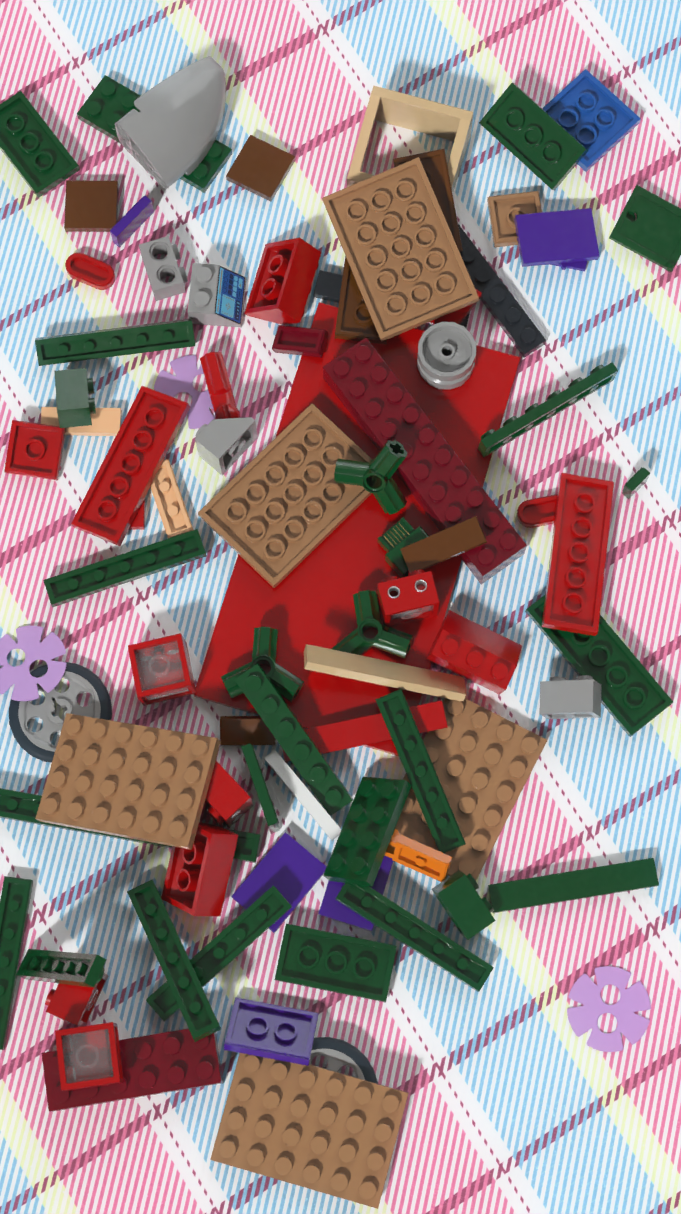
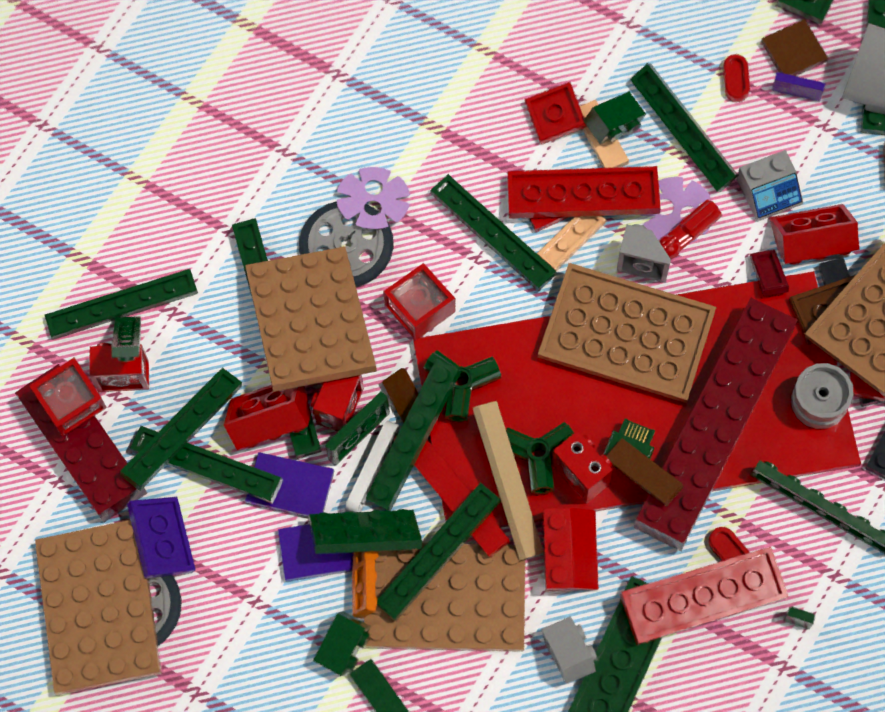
camera: 65 degrees right, 5 degrees down
(160, 268) = (766, 128): light grey brick -> none
(335, 963) = (243, 563): dark green plate -> none
(376, 475) = (676, 387): dark green piece -> none
(415, 934) = (297, 617): dark green plate -> none

